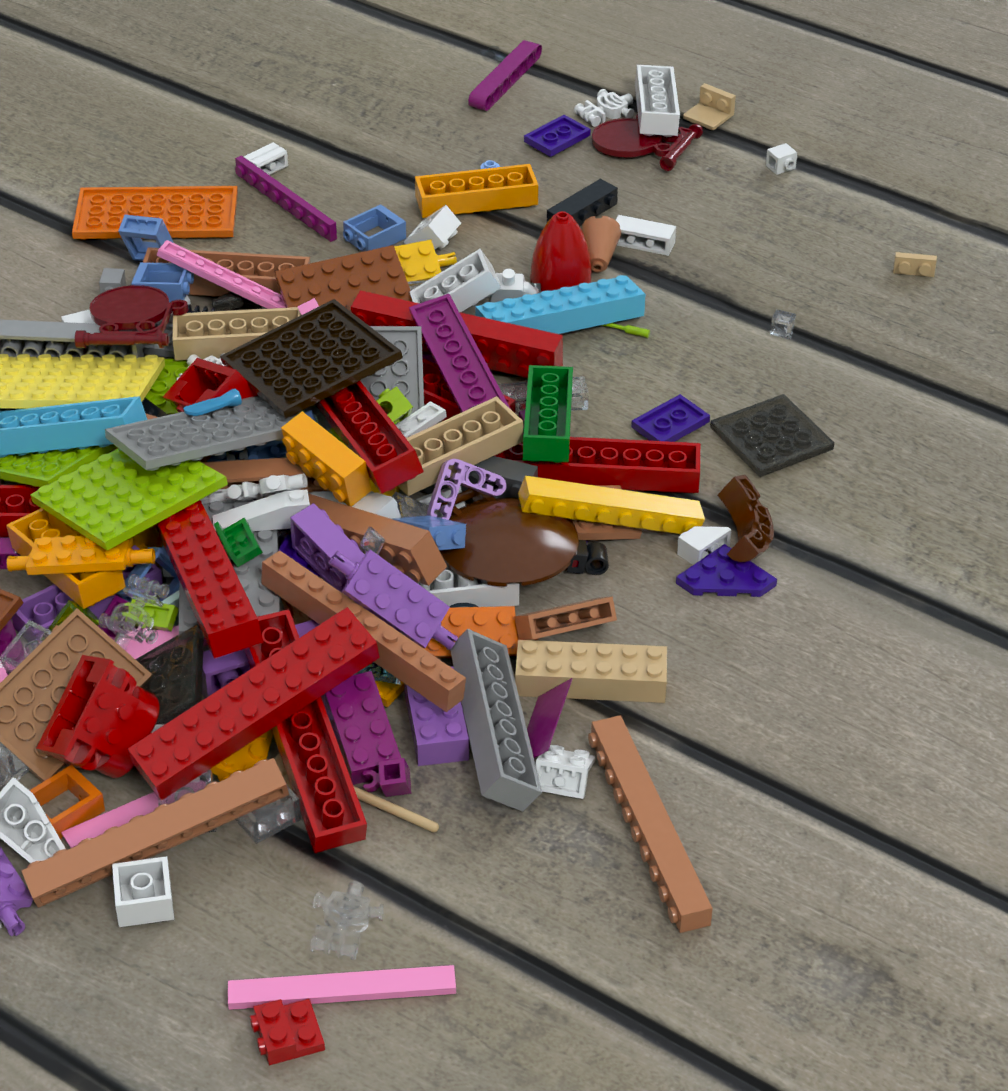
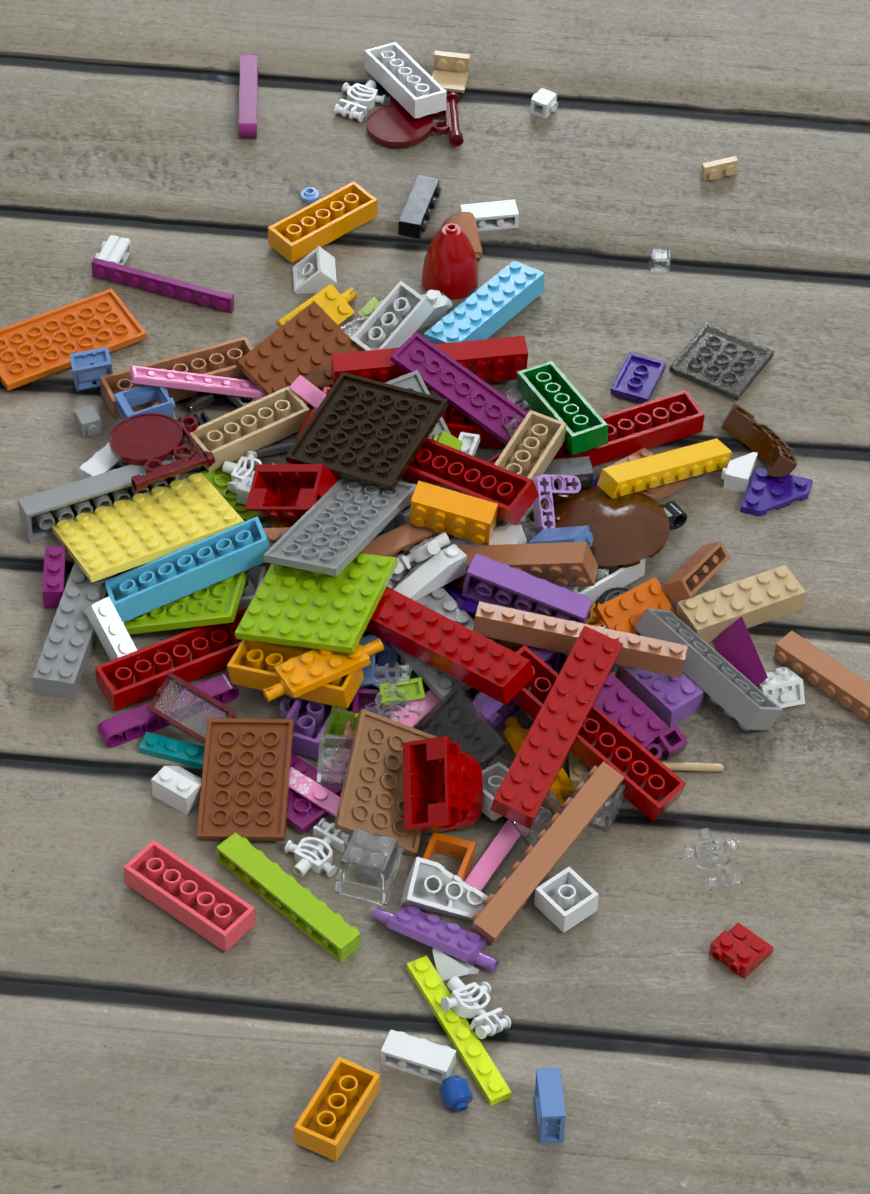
camera: 30 degrees left, 5 degrees up
(231, 398) = (322, 500): dark azure piece -> none
(239, 542) = (435, 602): green bracket -> none
(343, 986) = (750, 905): bright pink tile -> none
(372, 541) = (540, 568): clear slope -> none
(393, 229) = (262, 275): medium blue window -> none
(394, 598) = (589, 604): medium lavender plate -> none
(557, 135) = (341, 142): dark purple plate -> none
(631, 329) = (544, 307): lime piece -> none

